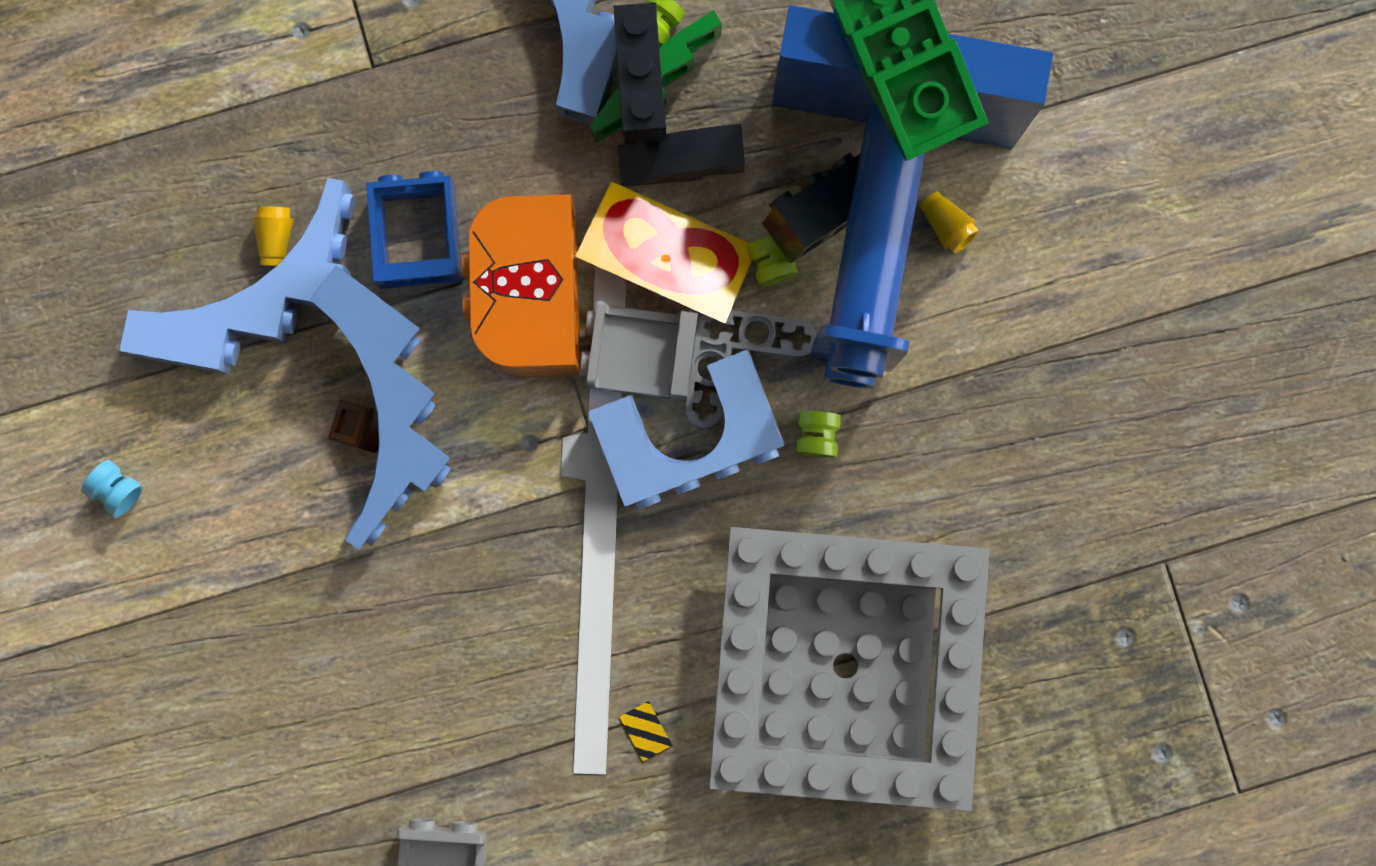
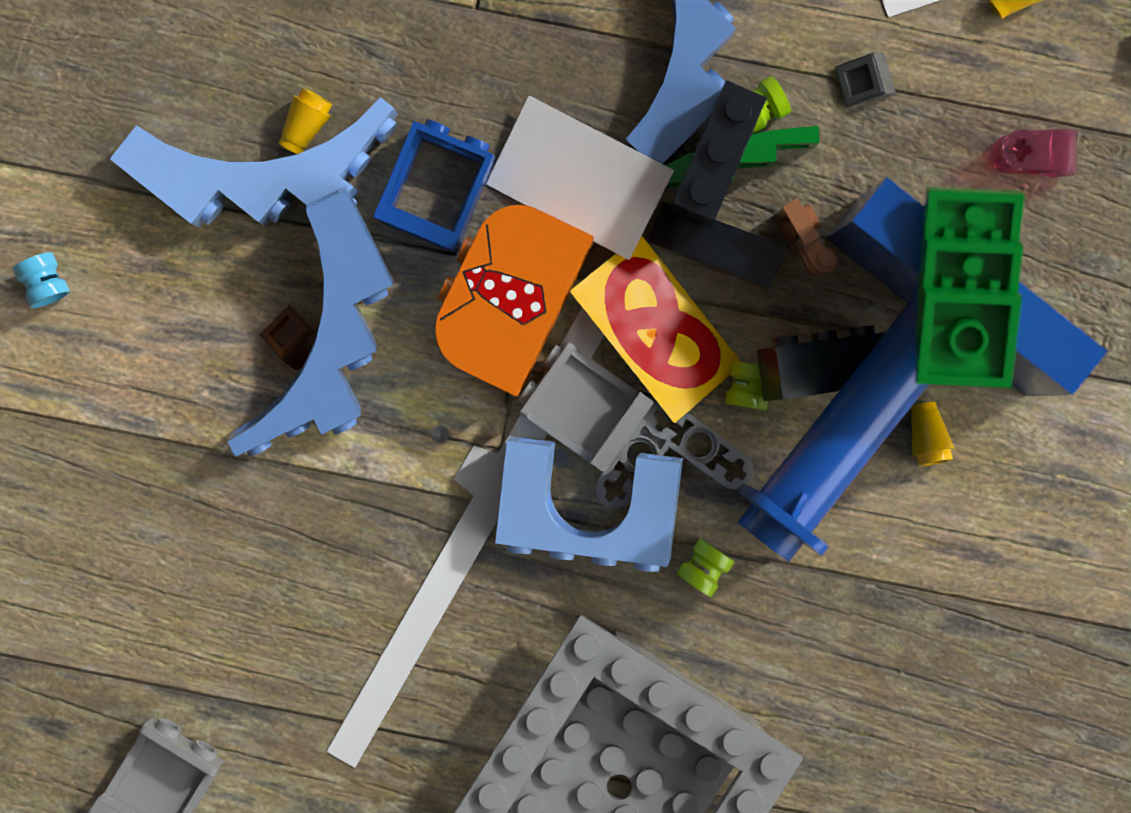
camera: 25 degrees right, 5 degrees up
(534, 156) = (580, 176): none -> white sticker
(645, 731) = (410, 748): sticker -> none
(744, 104) = (799, 228): none -> nougat plate

